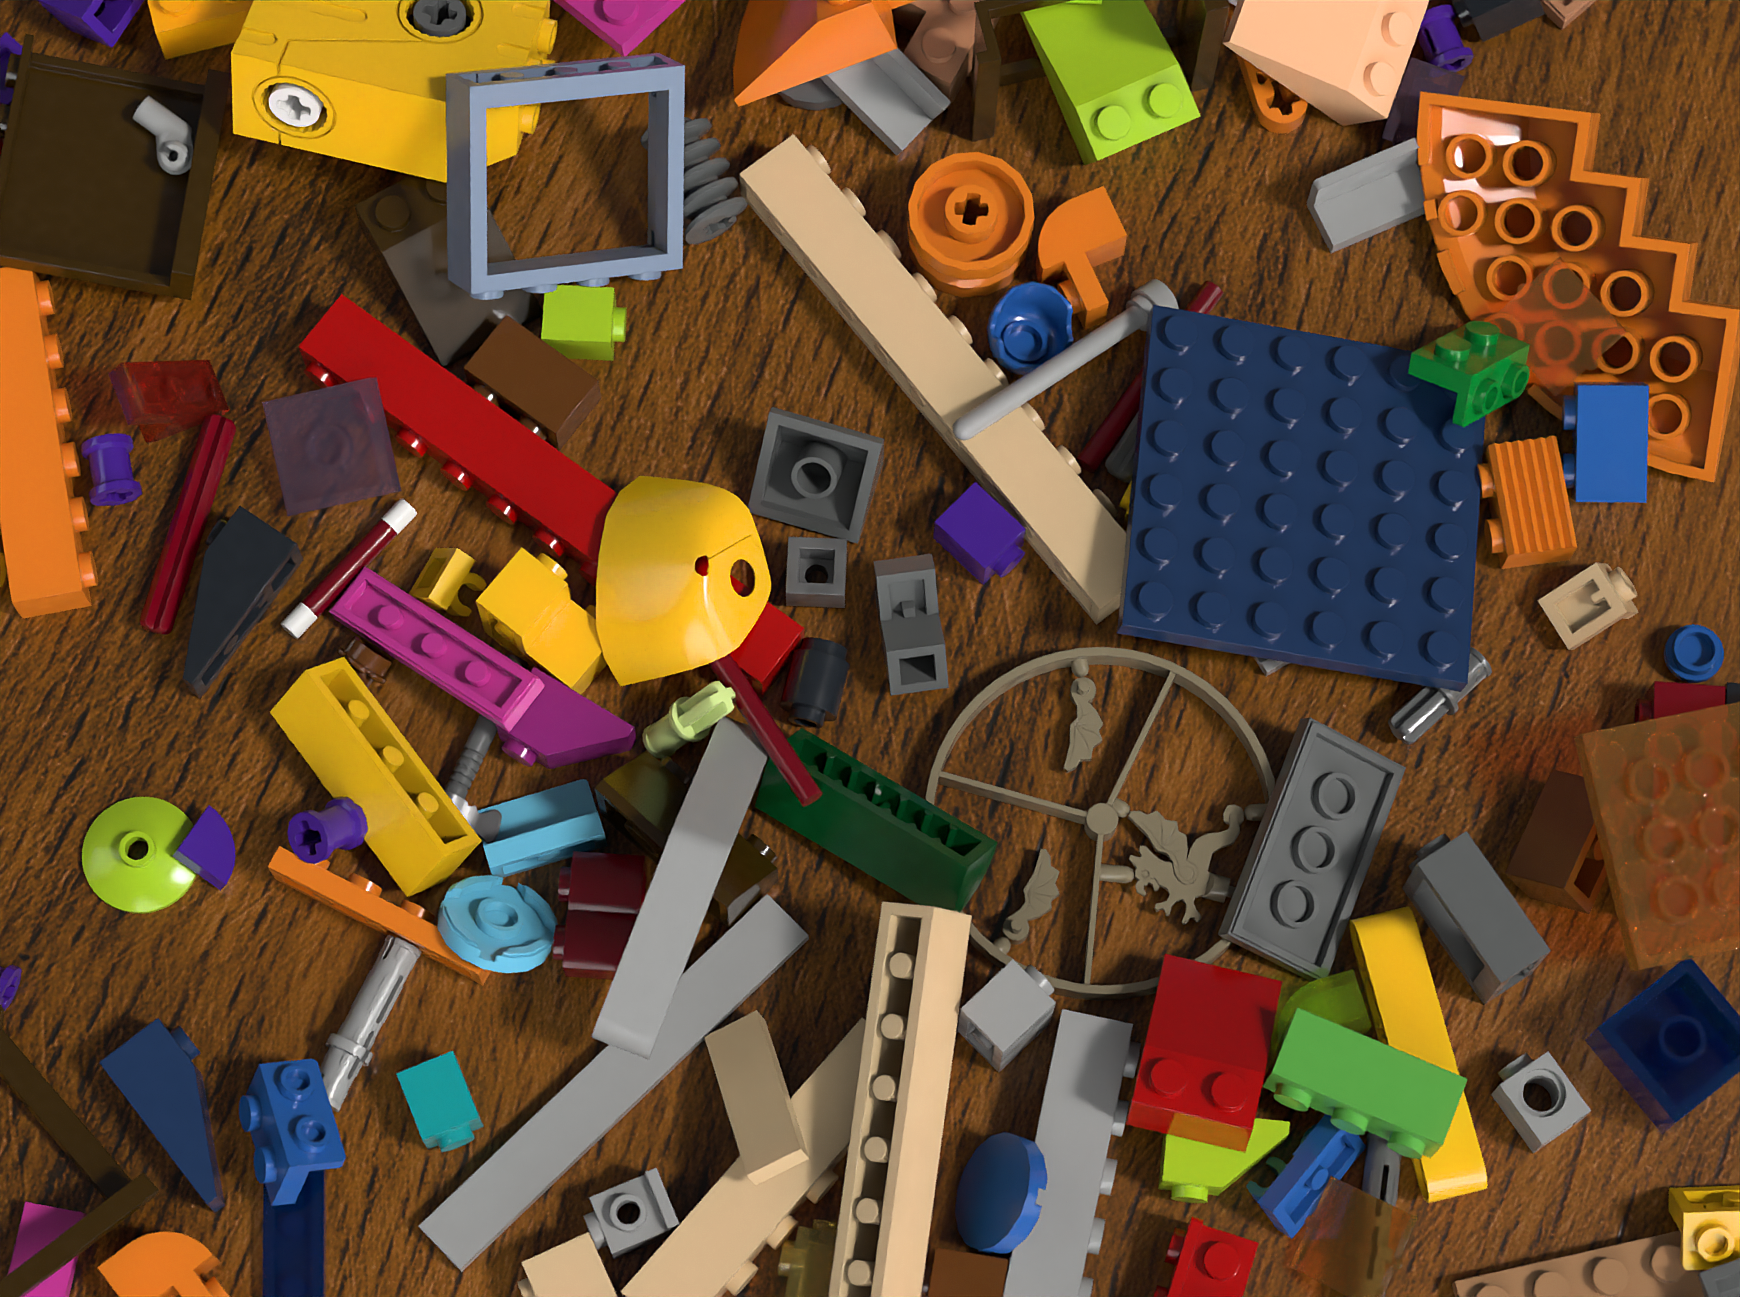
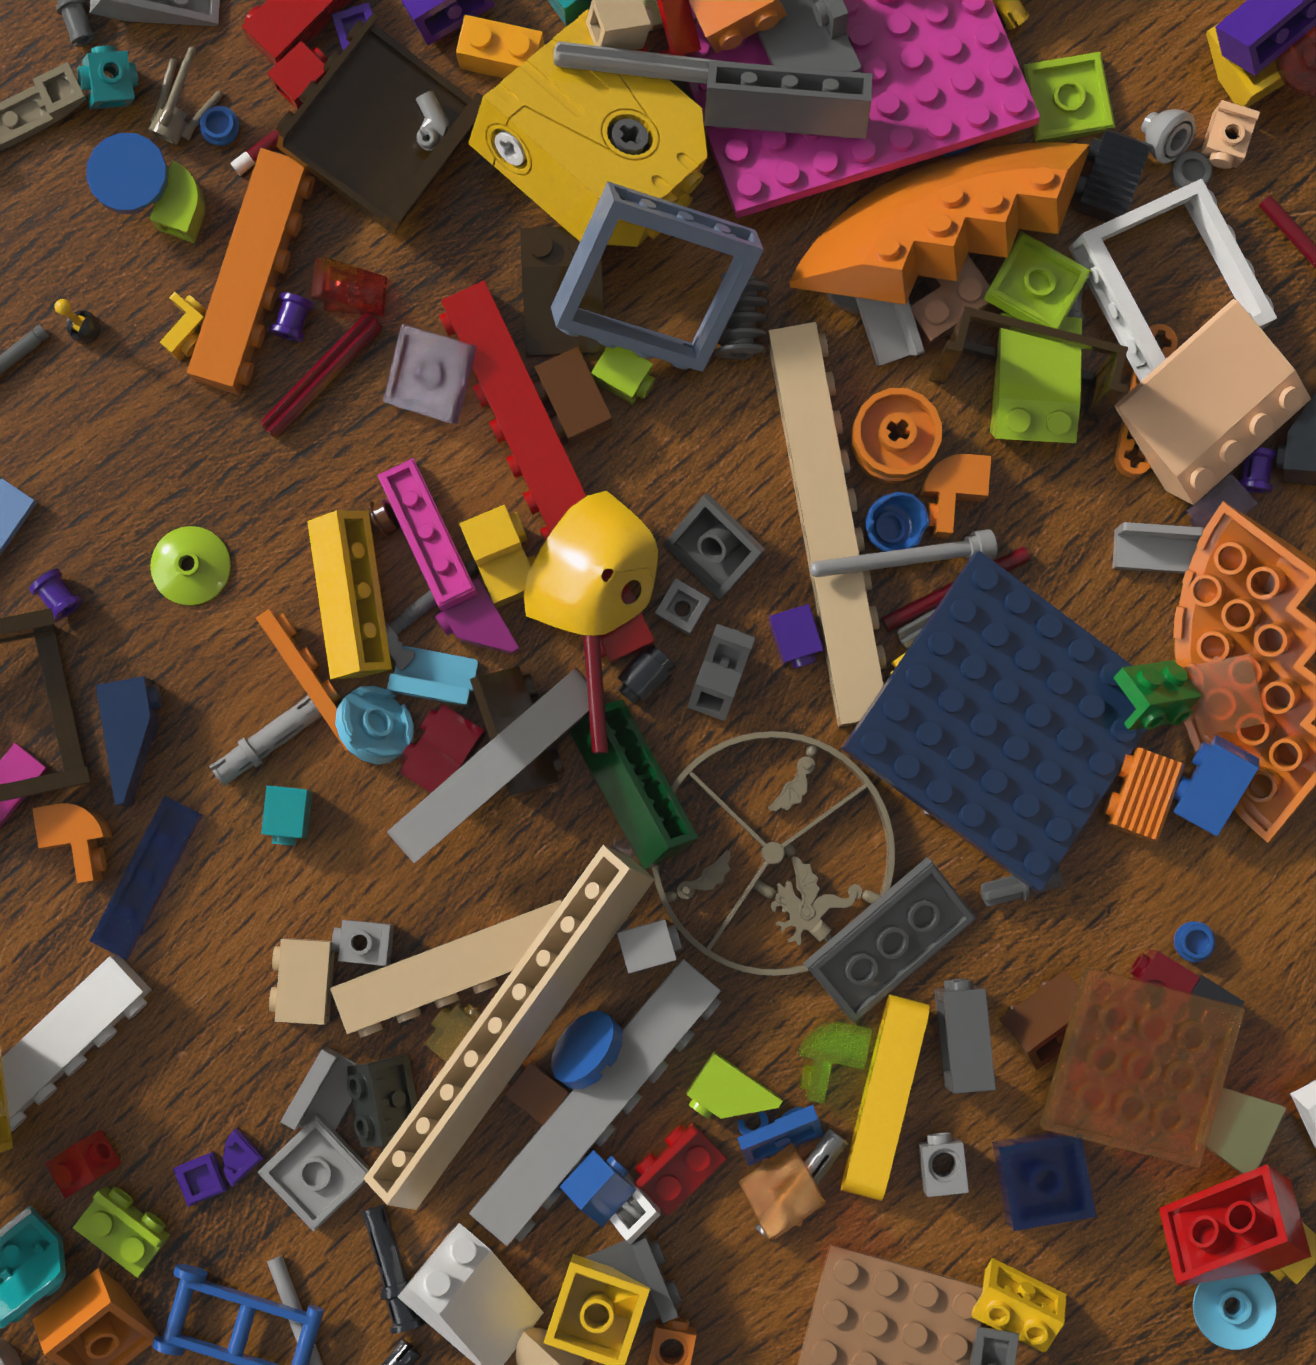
camera: 30 degrees right, 10 degrees up
(209, 849) = (230, 584): dark purple tile -> none
(237, 584) = (327, 431): black slope -> none
(290, 1126) = (189, 783): blue bracket -> none
(317, 834) = (302, 614): dark purple bush -> none
(348, 568) = (403, 453): dark red bar -> none
(443, 577) = (455, 491): yellow tile -> none
(611, 1086) = (385, 859): light grey tile -> none
(688, 719) = (554, 660): yellowish green axle -> none
(756, 1098) = (471, 915): tan tile -> none
(1205, 1053) = (755, 1032): red slope -> none
(1364, 1085) = (837, 1107): bright green brick -> none
(1589, 603) = (1147, 877): tan bracket -> none

